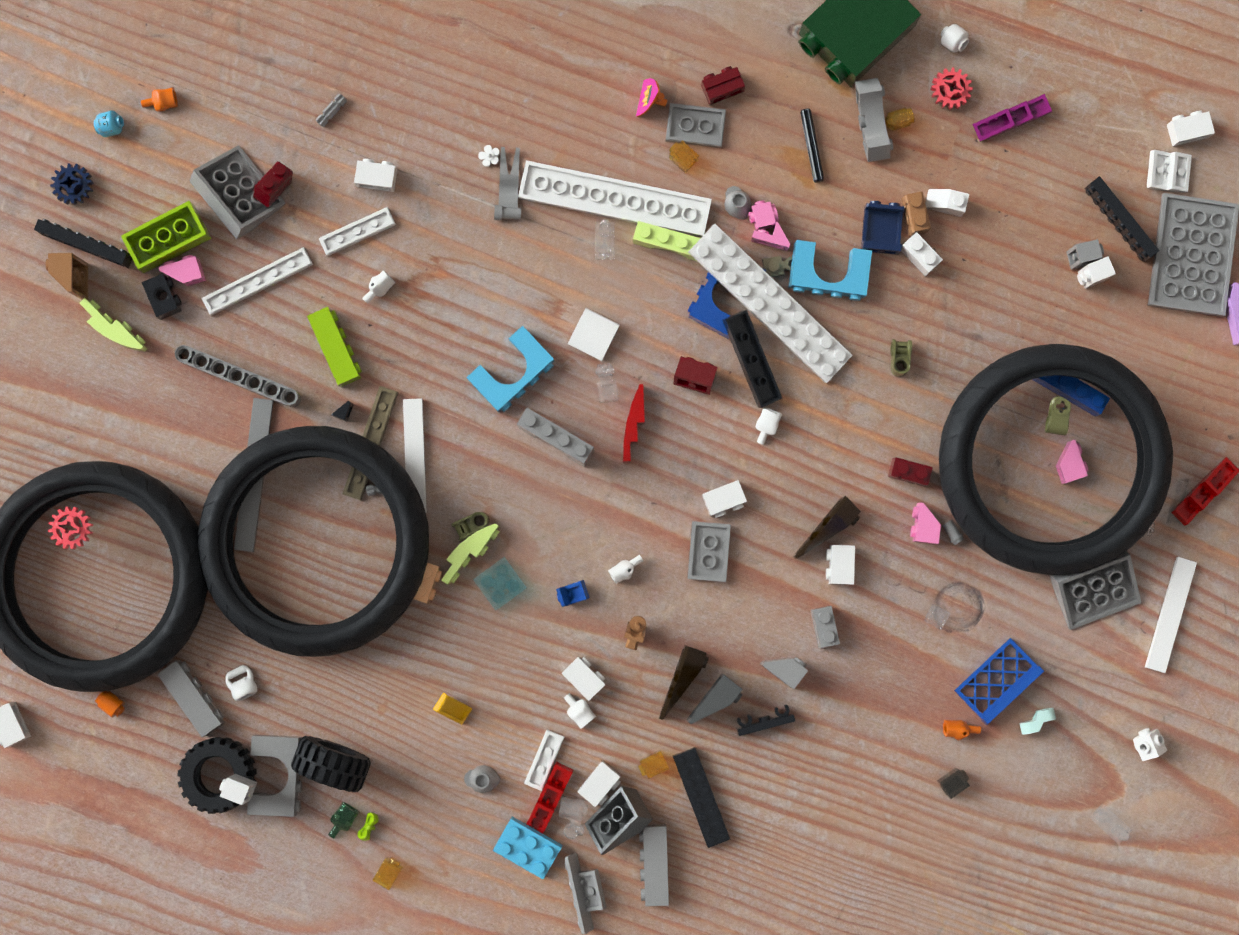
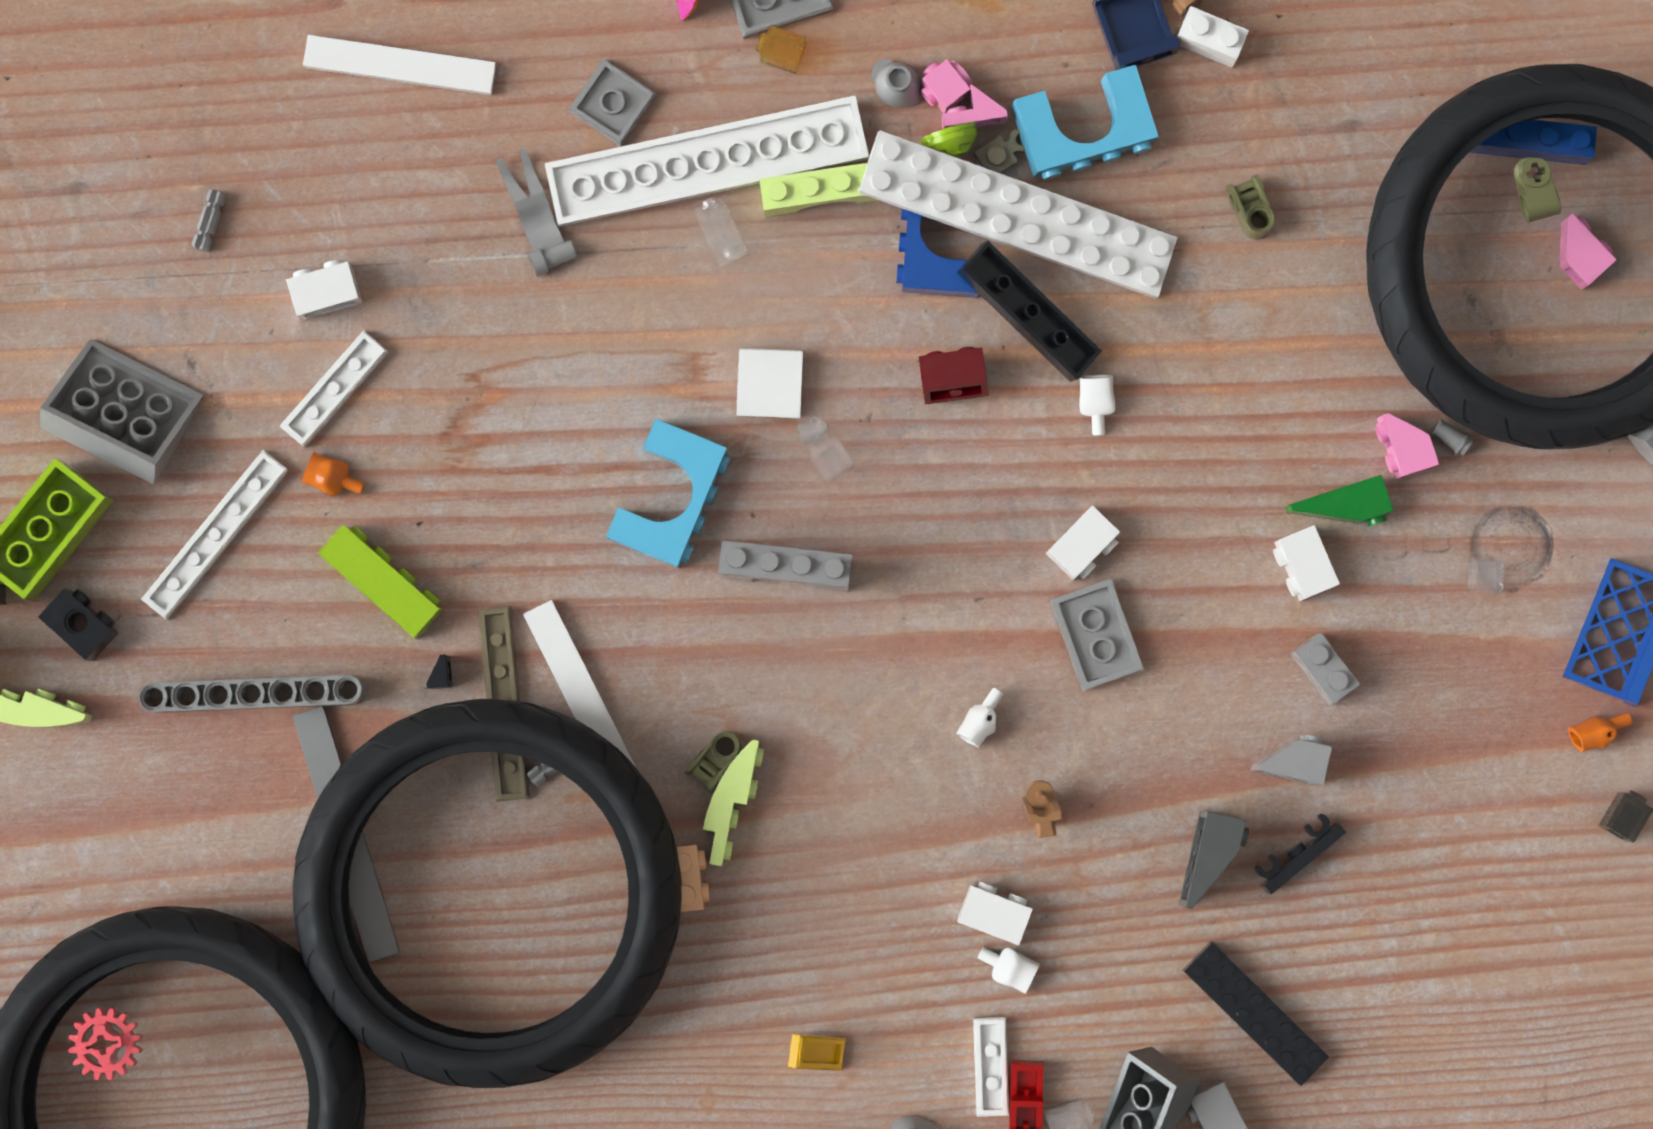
camera: 25 degrees left, 0 degrees up
(186, 271) = (98, 569): bright pink slope -> none
(273, 184) = (172, 374): dark red brick -> none
(333, 277) = (330, 476): none -> orange piece
(379, 286) = (407, 457): white piece -> none
(472, 72) = (399, 65): none -> white tile
(490, 156) = (484, 181): white plant -> none
(497, 597) = (777, 835): clear light blue plate -> none
(572, 593) = (918, 793): blue bracket -> none
(578, 144) = (612, 102): none -> light grey tile
(599, 784) = (1092, 1064): white brick -> none
(635, 417) = (891, 480): red slope -> none
(653, 764) = (1160, 997): clear yellow brick -> none
(687, 669) = (1145, 829): dark brown wedge -> none
(753, 247) = (952, 140): none -> lime piece
(835, 521) = (1268, 498): dark brown wedge -> none
(881, 543) = (1352, 504): none -> green slope
(910, 472) = (1346, 375): dark red brick -> none

